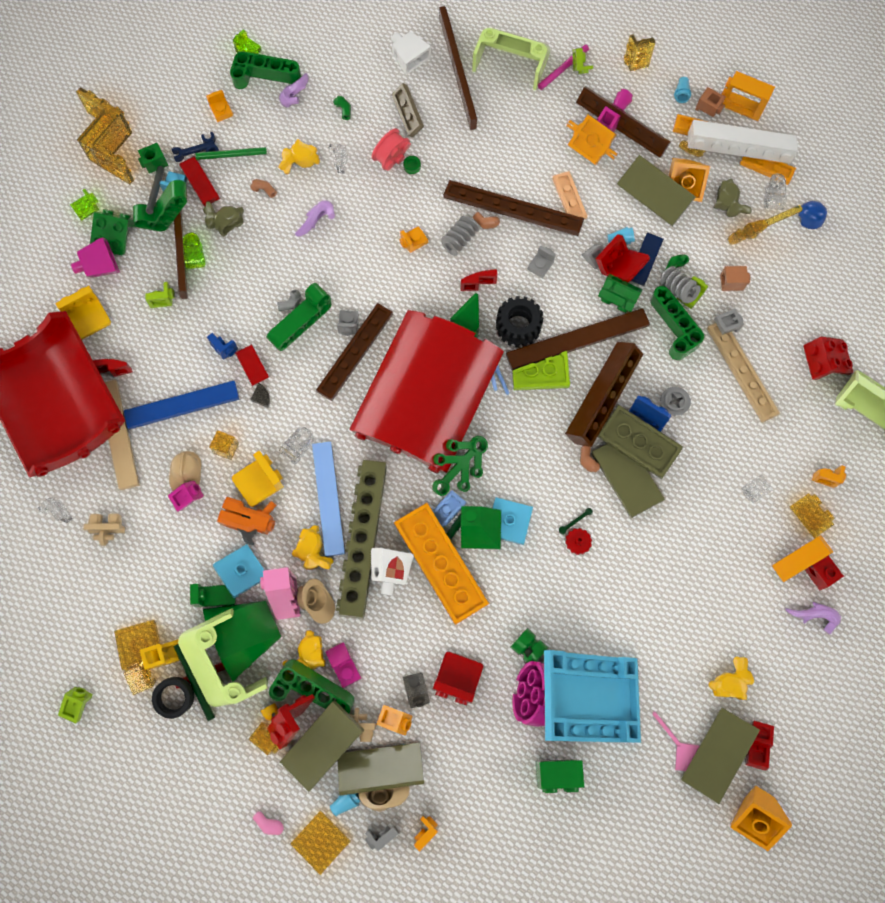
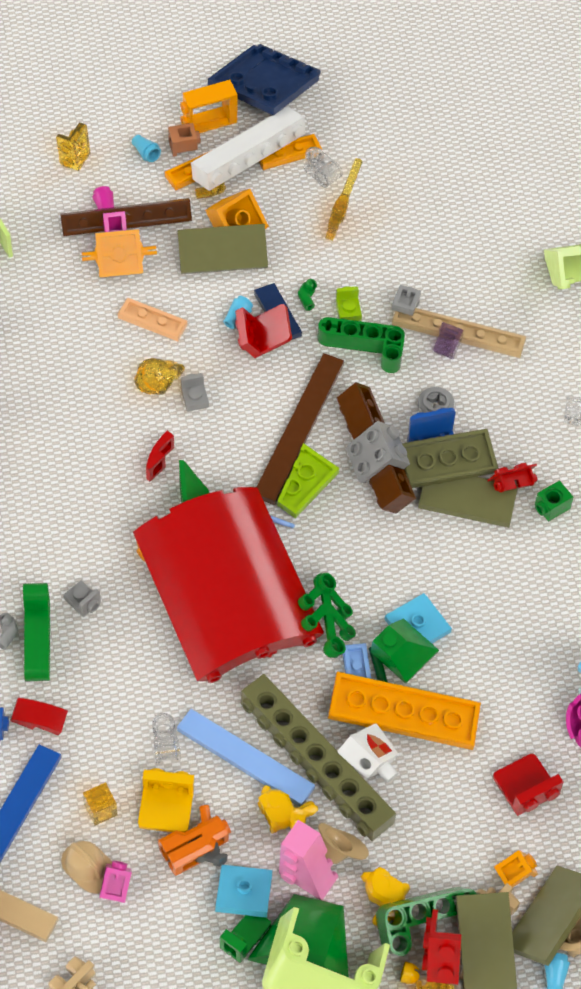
camera: 50 degrees left, 15 degrees down
(261, 396) = (79, 734): clear smoke tile -> none
(343, 665) = (422, 873): dark pink slope -> none
(354, 352) = (119, 618): reddish brown tile -> none
(413, 239) = (56, 475): light orange bracket -> none
(416, 690) = (505, 827): clear smoke bracket -> none
(459, 235) = (97, 433): light grey piece -> none
(487, 222) = (106, 404): nougat arm -> none
(514, 208) = (113, 371): reddish brown tile -> none
(521, 308) = (236, 441): black tyre -> none
(528, 639) = (544, 699): green wheel -> none
(530, 232) = (157, 375): none -> clear yellow hair
(559, 70) = (15, 217): dark pink bar -> none
(562, 530) = (468, 588): dark green hinge -> none
(578, 59) = (27, 199): lime bracket -> none
(578, 541) = (490, 585): red piece -> none
(586, 461) = (423, 516): nougat arm -> none
(591, 254) = (230, 348): light grey slope -> none
(601, 396) = (376, 450): none -> light grey bracket
(619, 293) = (292, 357): green brick -> none
(659, 488) = (506, 478): none -> red hinge
(680, 285) = (335, 306): light grey piece -> none
(681, 526) = (557, 493): none -> green brick
(726, 371) = (448, 340): none -> clear purple panel
(728, 199) = (289, 205): olive animal -> none
(734, 278) = (369, 263): nougat brick -> none
(804, 107) = (267, 78): none -> dark blue hinge
(813, 214) = (373, 158): blue hair -> none
(827, 356) = (511, 260): red bracket -> none

